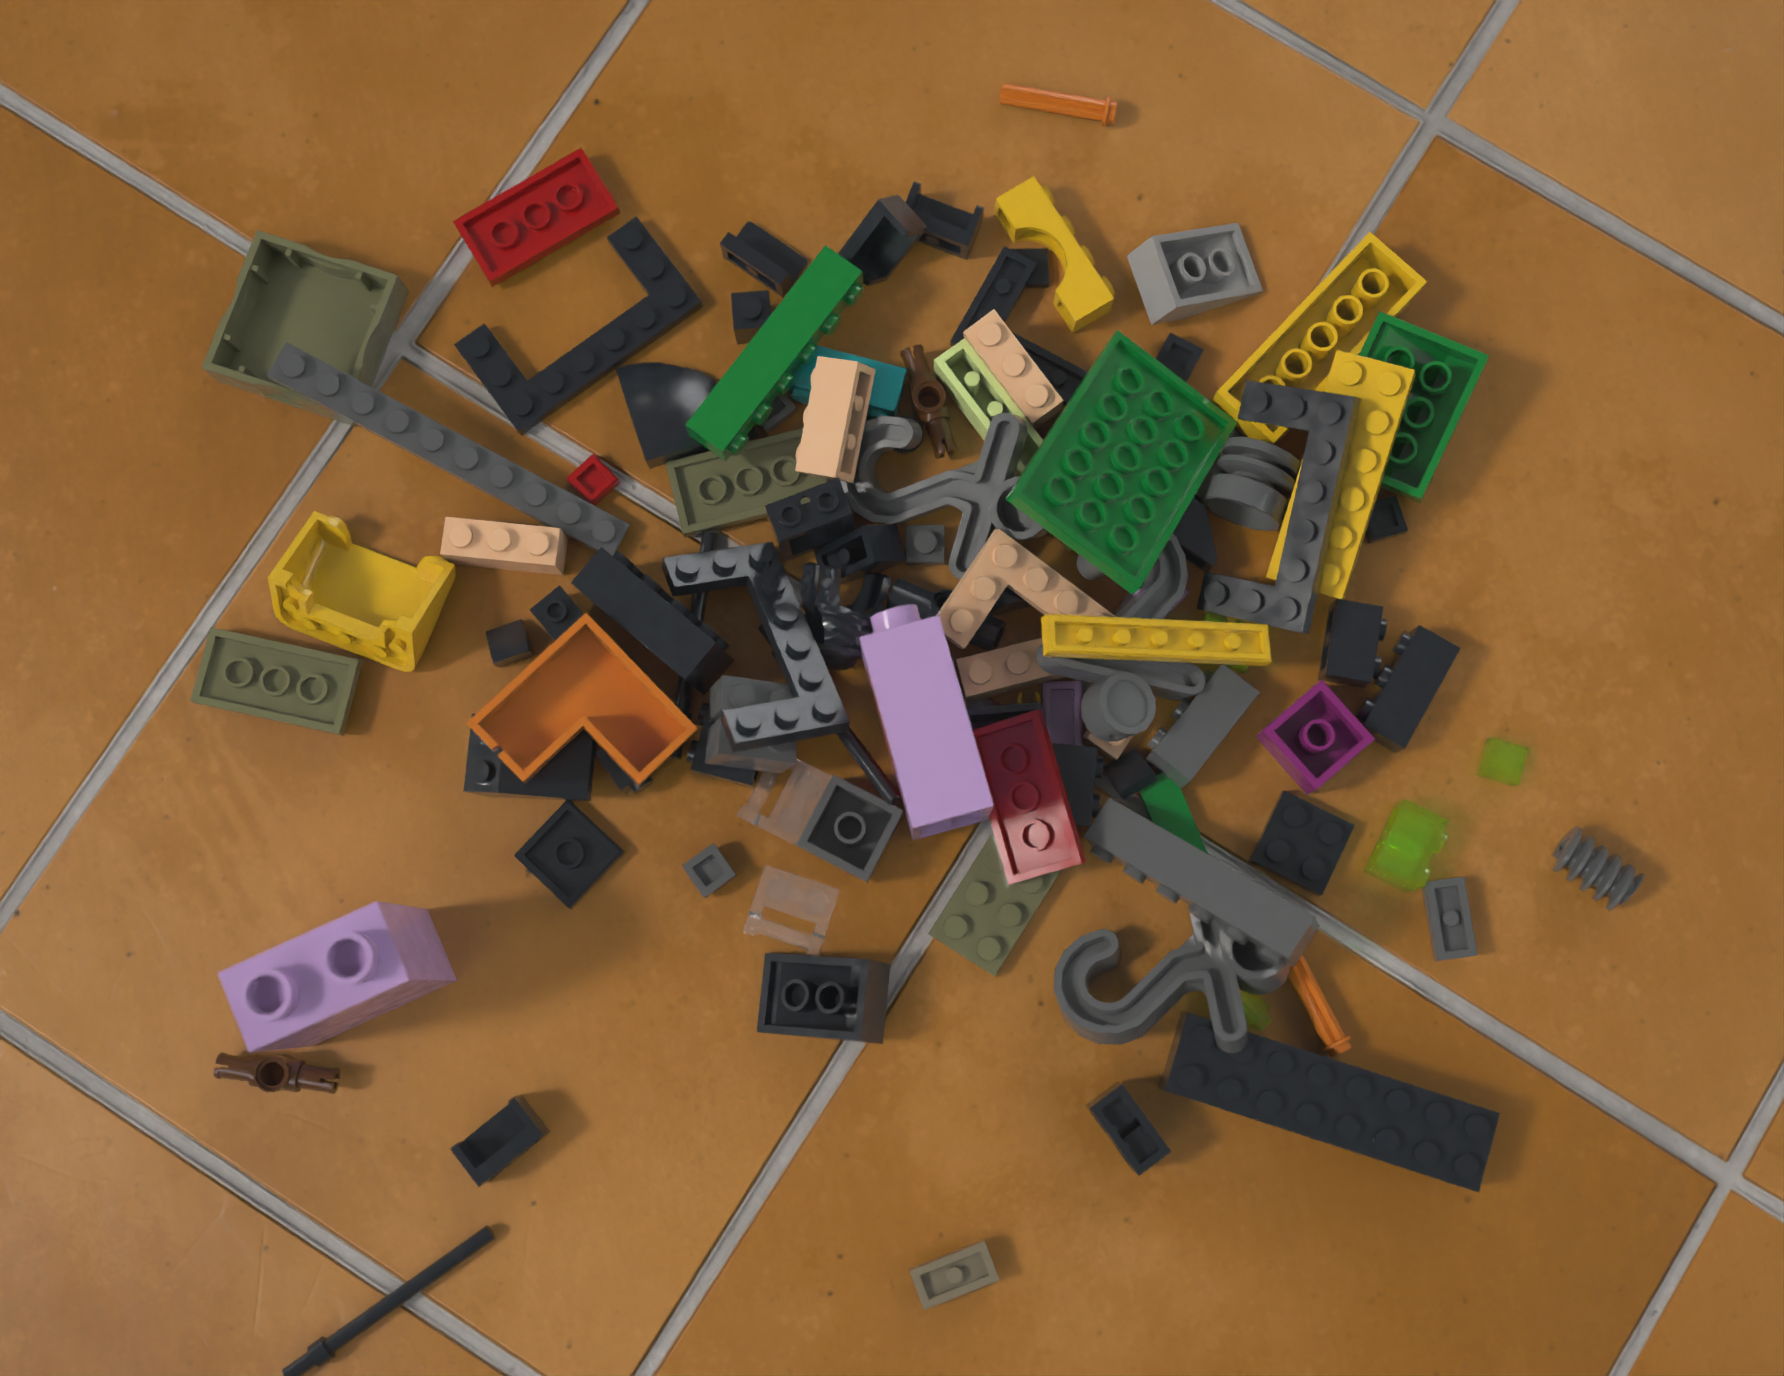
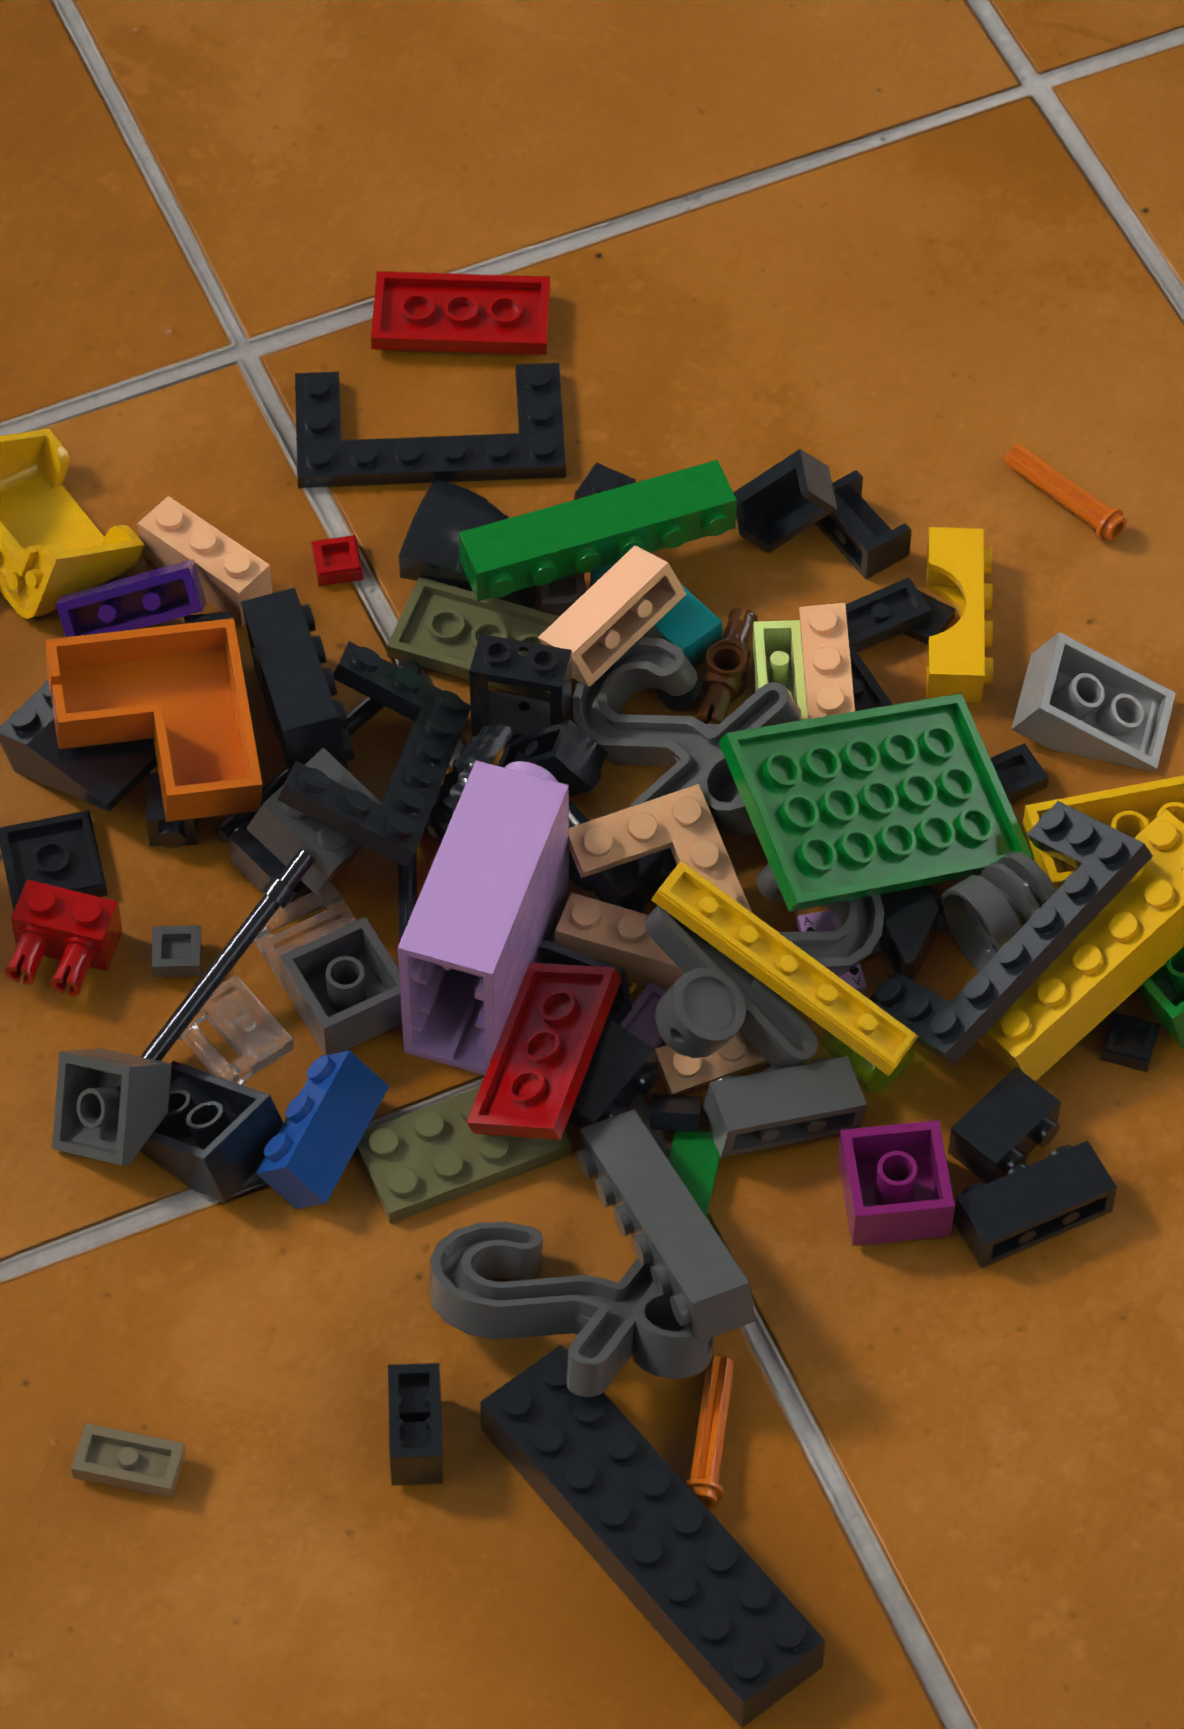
camera: 30 degrees right, 25 degrees down
(311, 301) = (166, 285): olive tile -> none
(447, 449) = (214, 442): dark grey plate -> none
(482, 621) = (133, 601): none -> dark purple brick
(627, 902) = (66, 927): none -> red brick
(755, 1026) = (108, 1103): none -> dark grey slope
(763, 258) = (649, 453): black panel -> none
(766, 806) = (277, 894): none -> black bar
(911, 949) = (322, 1129): none -> blue brick
(925, 545) = (619, 791): dark grey plate -> none
(1255, 1011) = (634, 1398): clear neon green plate -> none
(1301, 843) = (812, 1287): black plate -> none
(1407, 846) = (921, 1348): clear neon green brick -> none
(1449, 919) = (917, 1447): dark grey plate -> none
(1502, 761) = (1092, 1339): clear neon green plate -> none
(1596, 868) = (1113, 1491): dark grey piece -> none

